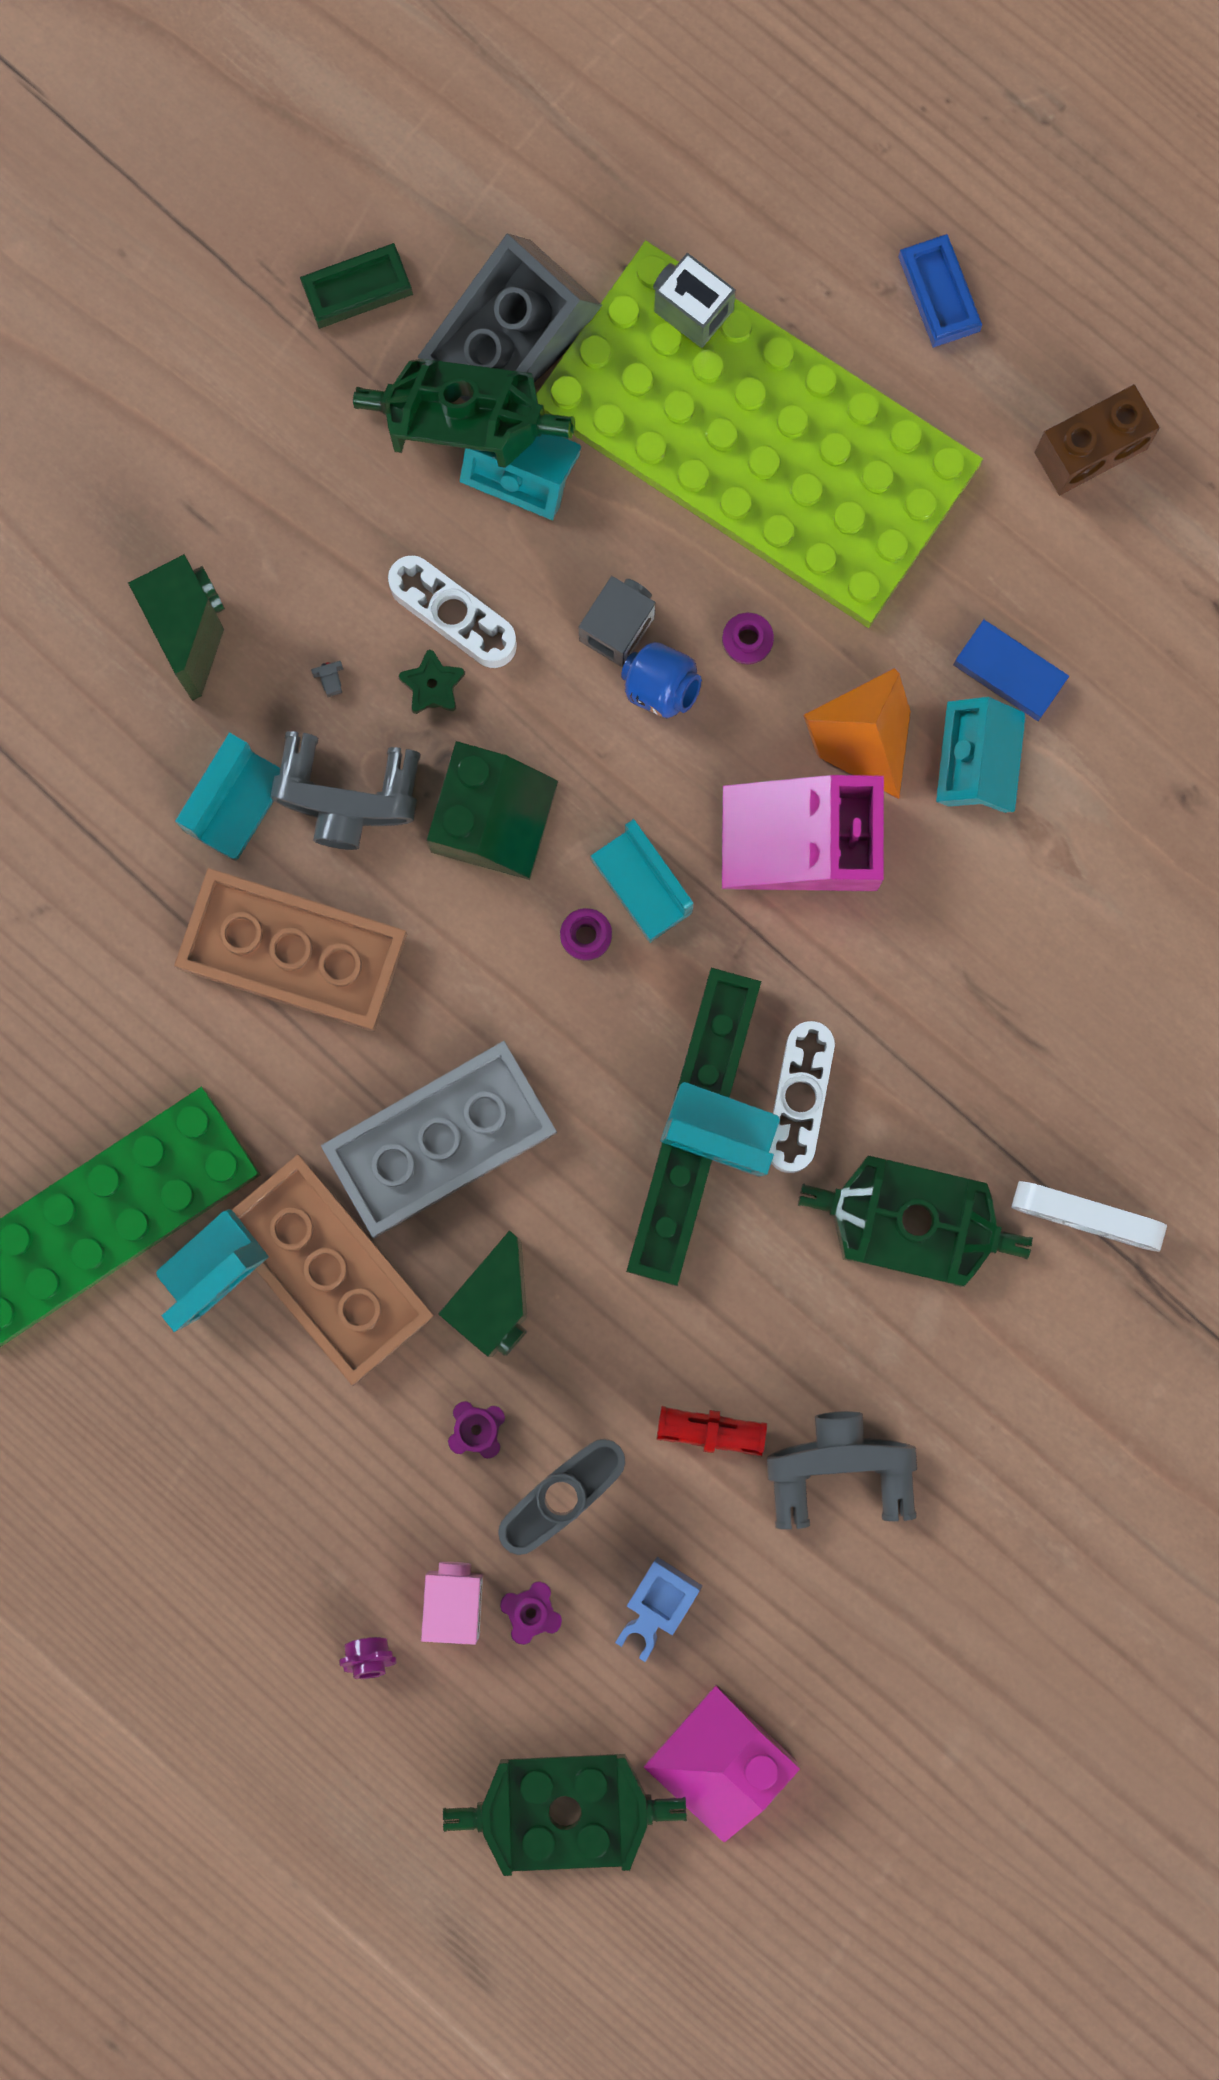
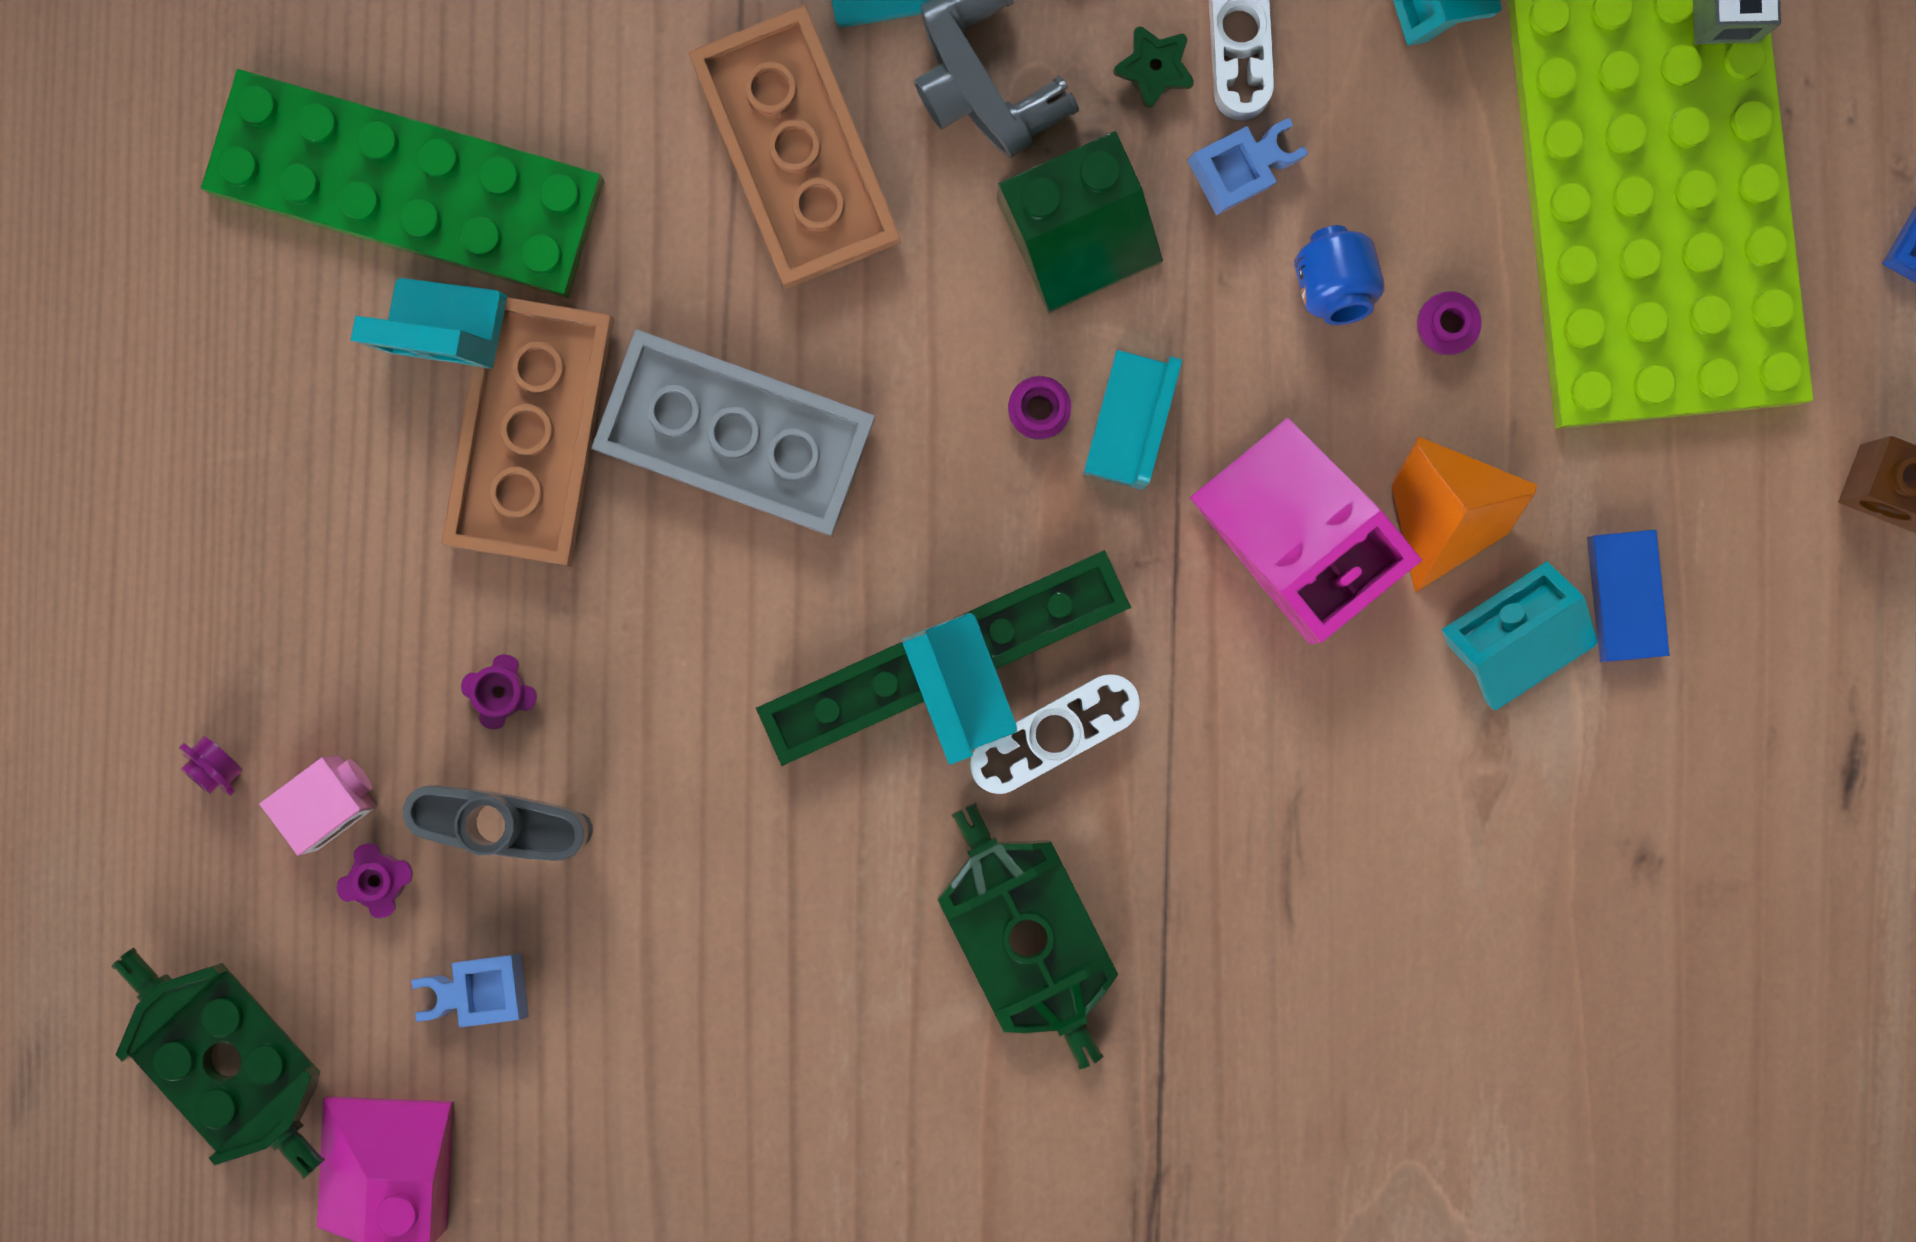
camera: 45 degrees right, 5 degrees up
(492, 1301) = (620, 608): dark green slope -> none
(541, 684) = (1240, 167): none -> medium blue plate
(617, 619) = (1363, 185): dark grey brick -> none
(711, 1431) = (676, 908): red pin -> none
(842, 1449) = (756, 1042): dark grey connector -> none
(1089, 1216) = (1167, 1094): white beam -> none

